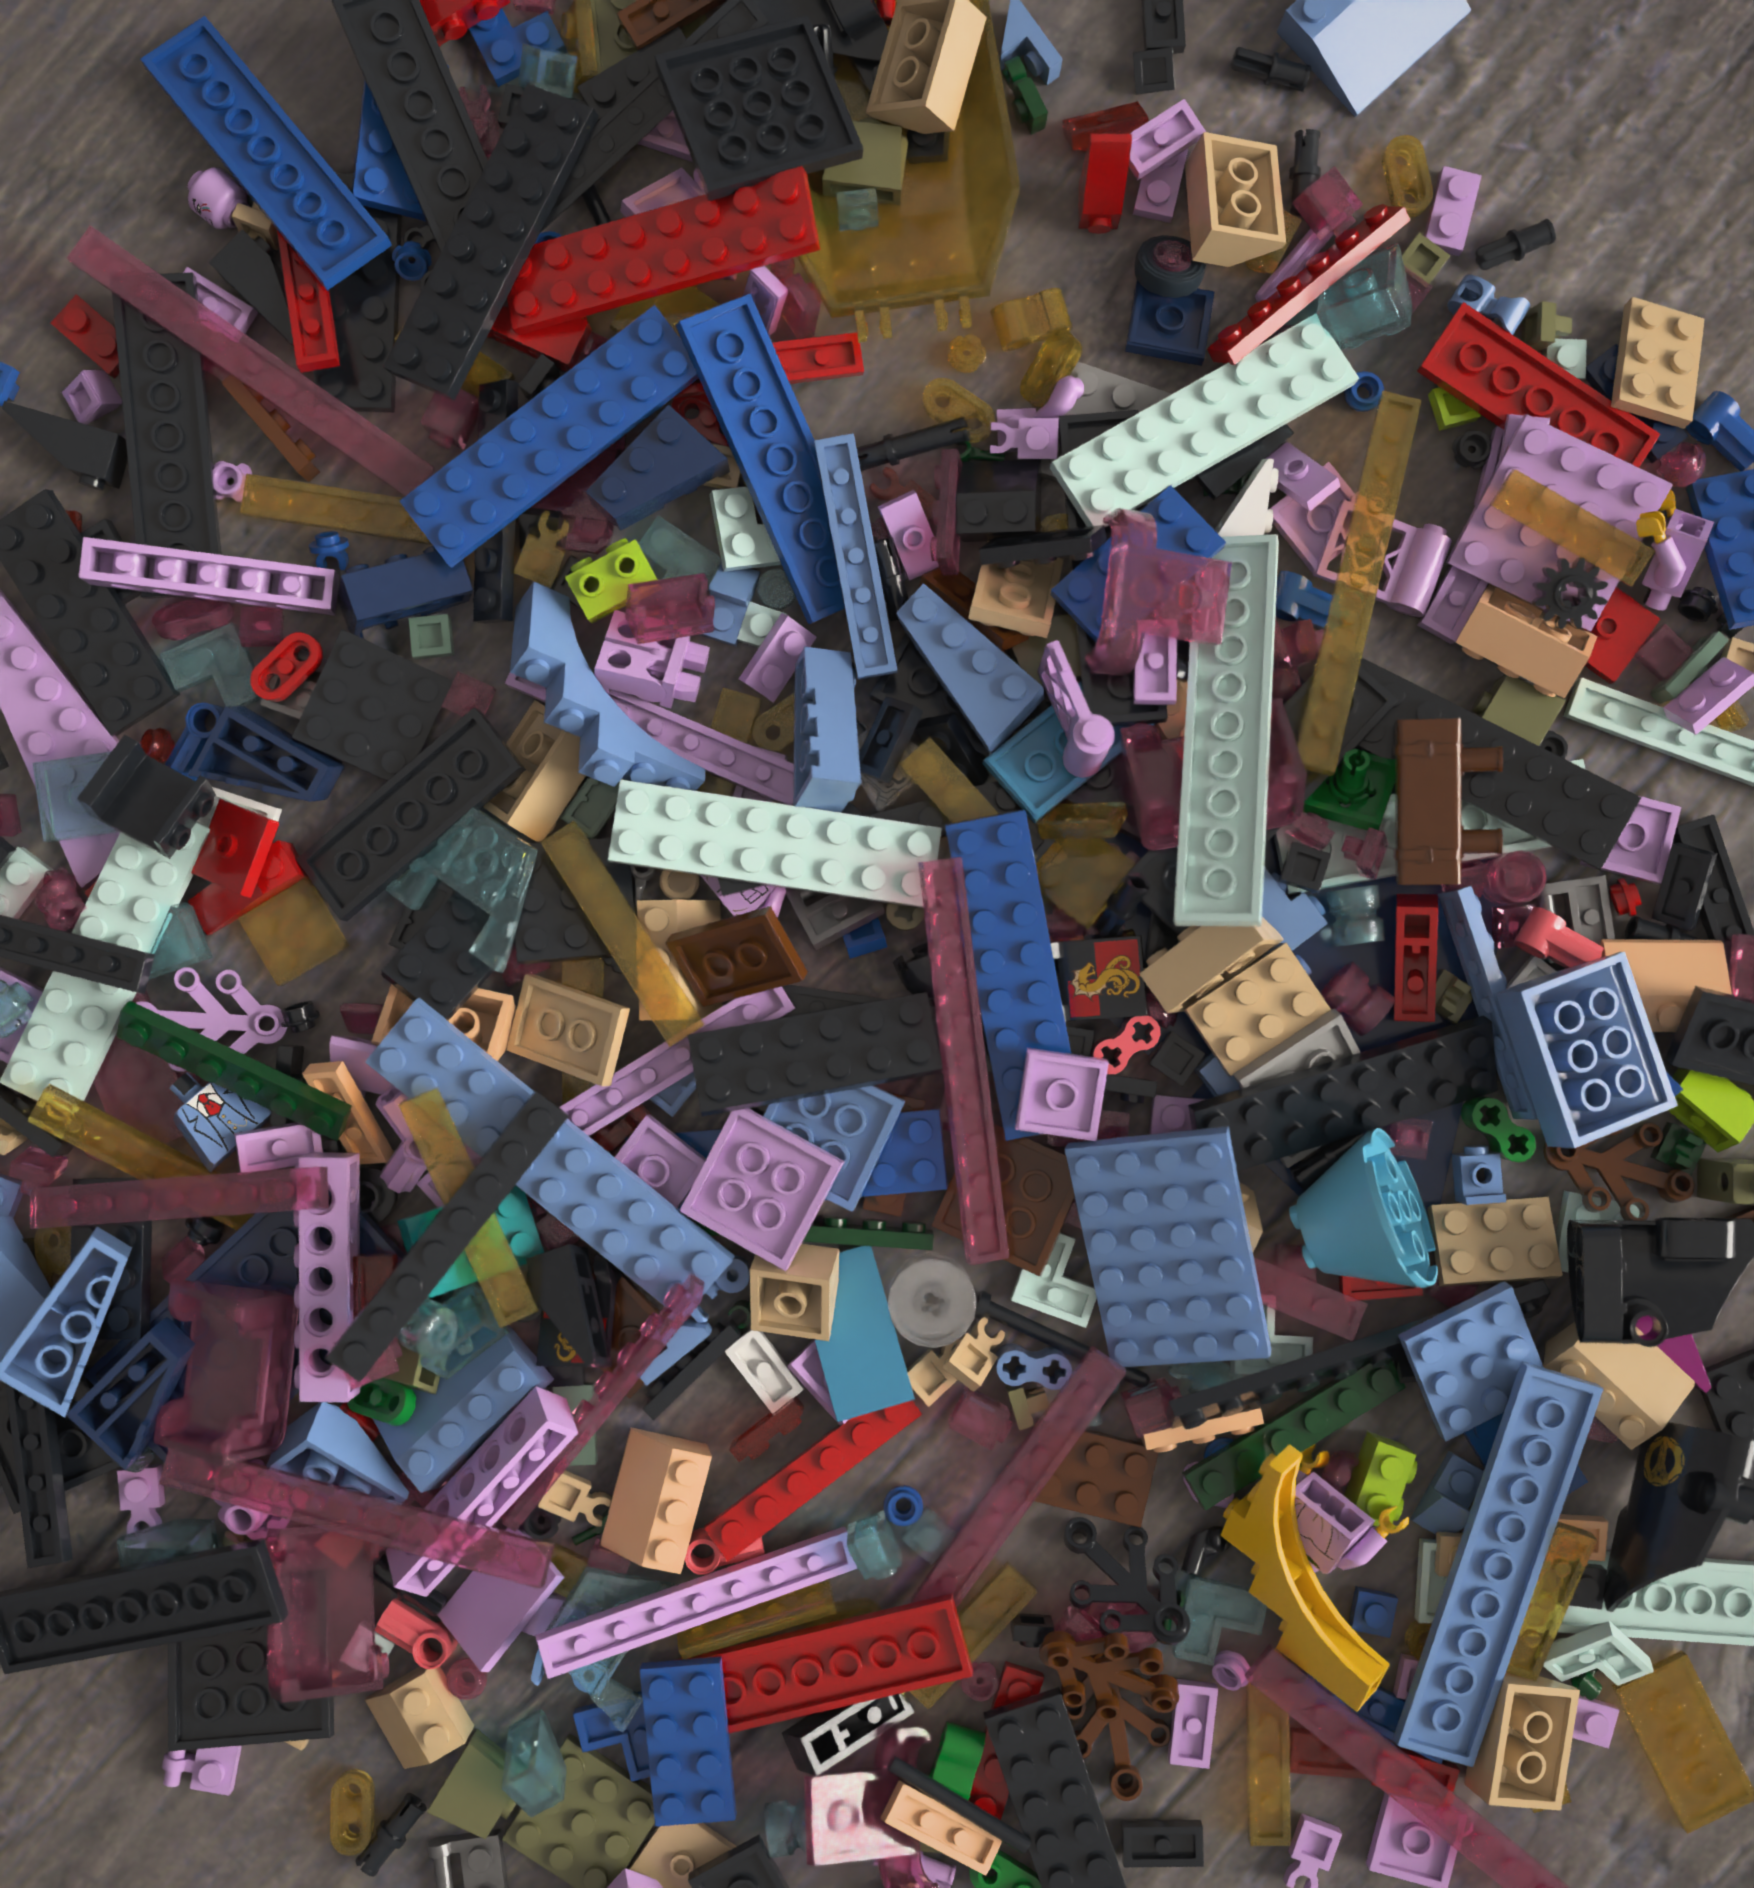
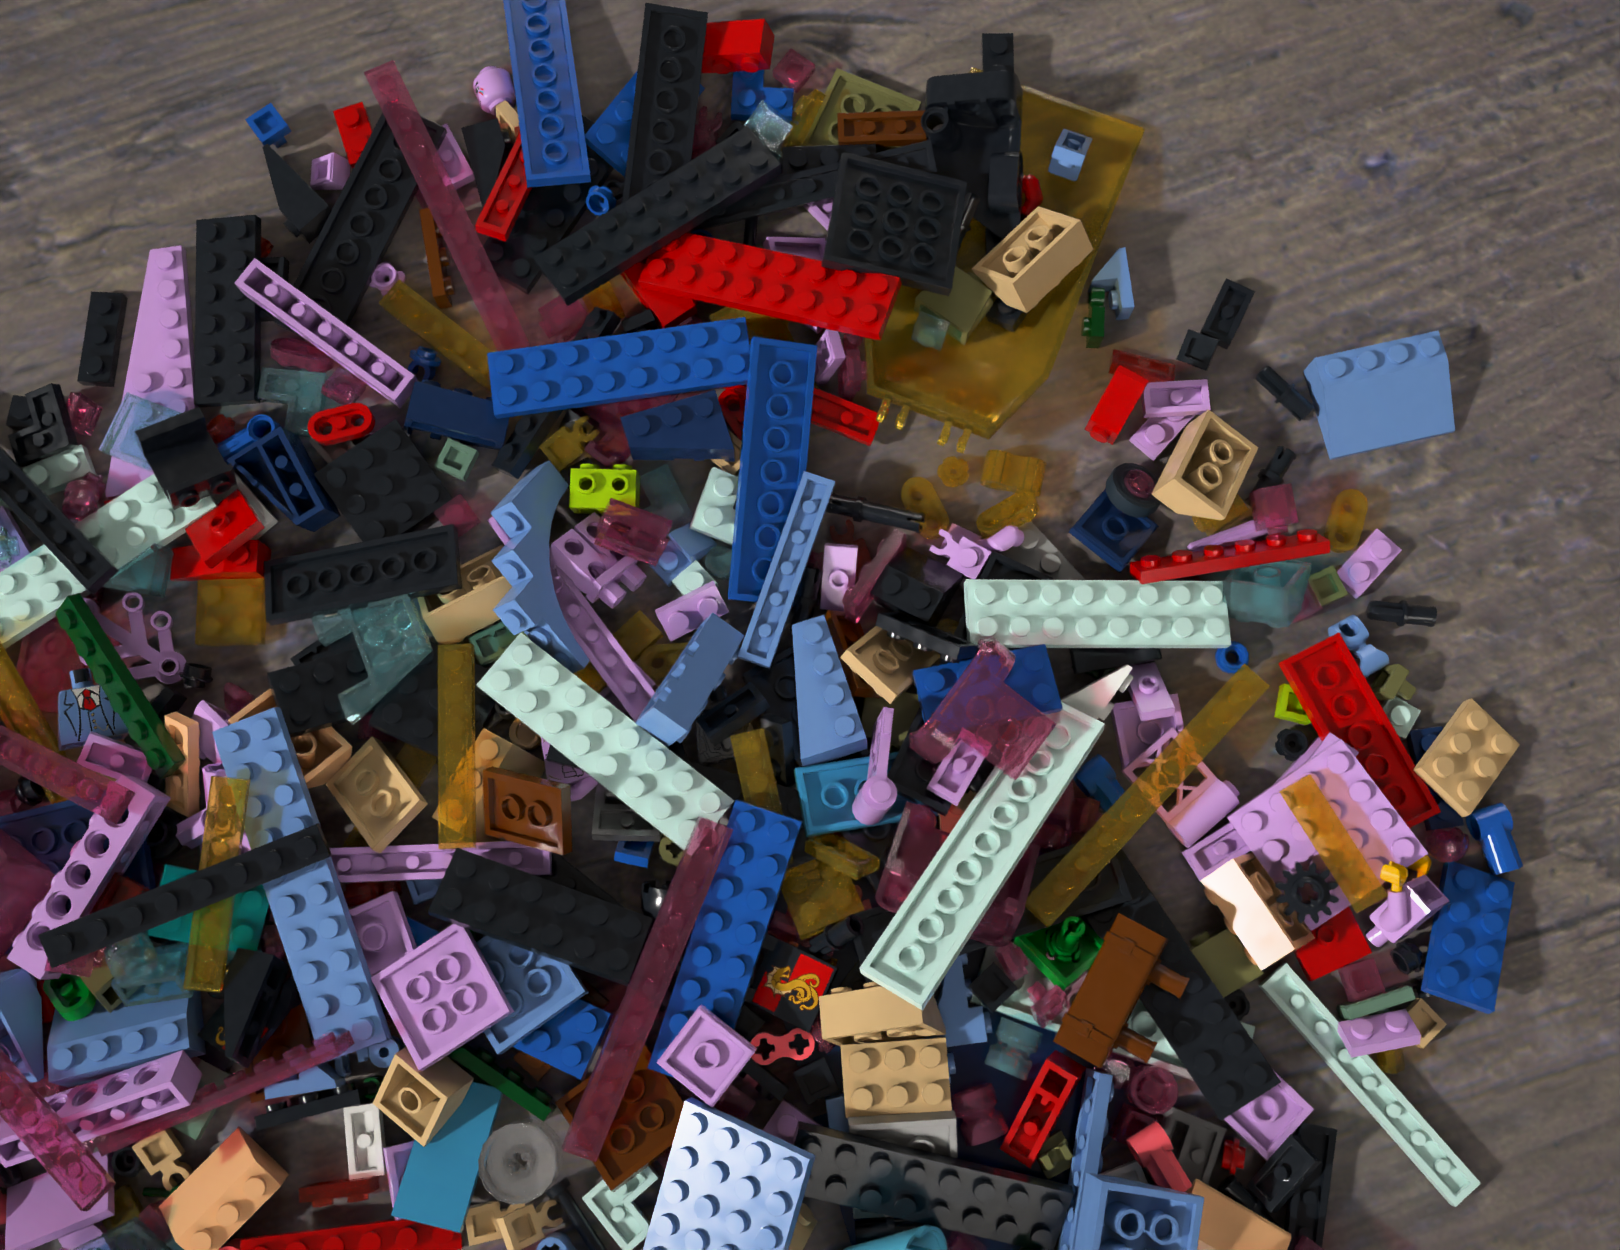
camera: 30 degrees right, 10 degrees down
(977, 453) = (921, 546): dark green hand -> none

